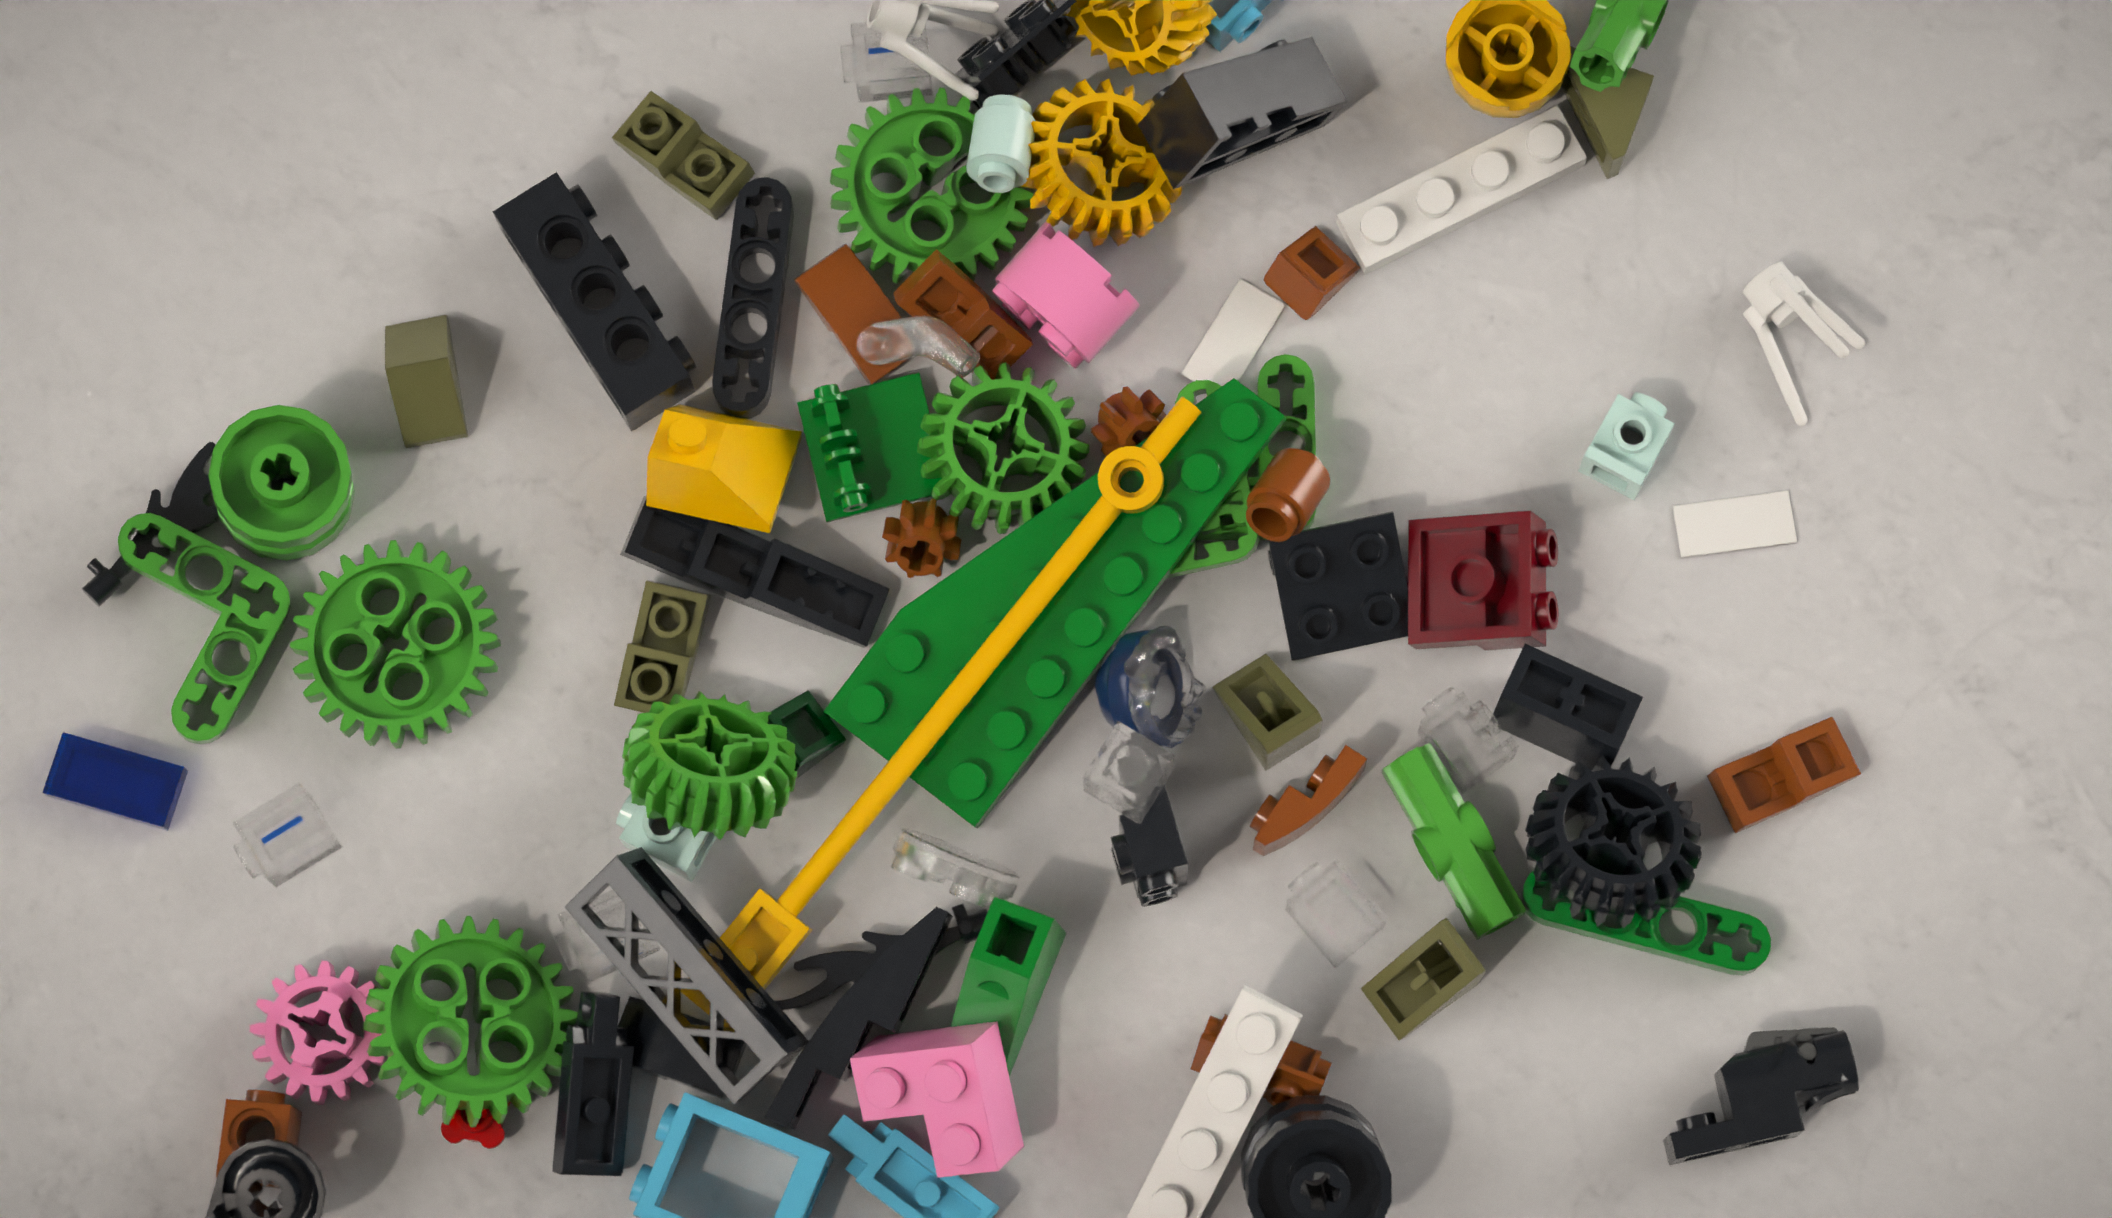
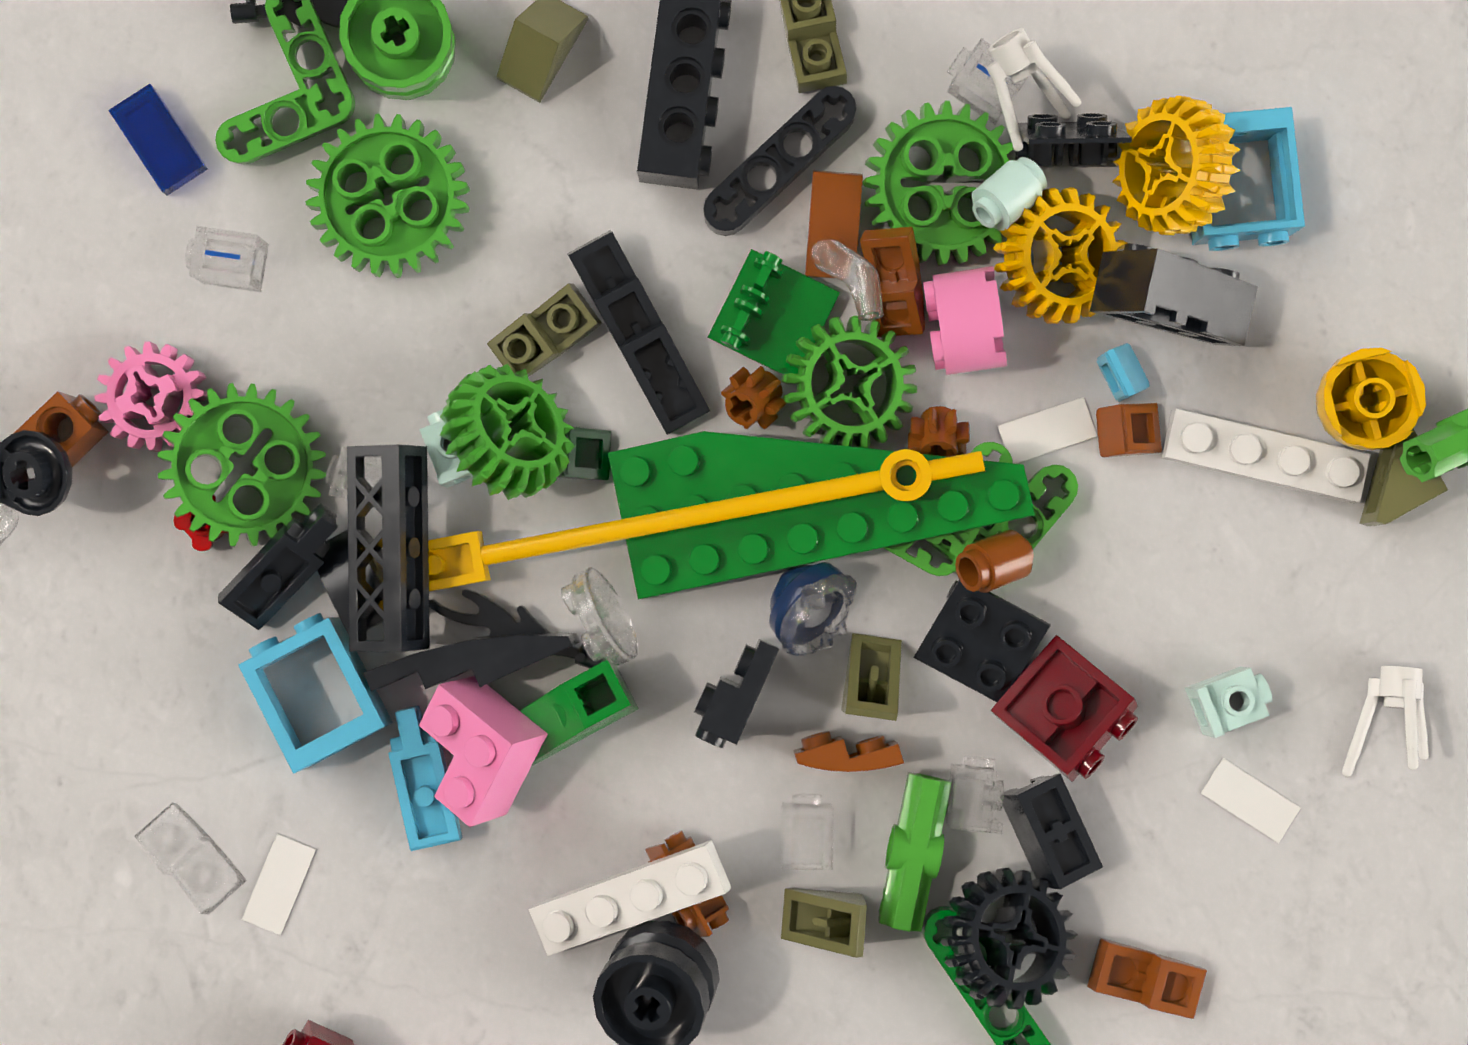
camera: 35 degrees right, 10 degrees up
(720, 467) = (669, 250): yellow slope -> none
(1128, 772) = (744, 664): clear brick -> none
(1256, 223) = (1122, 372): none -> medium azure slope

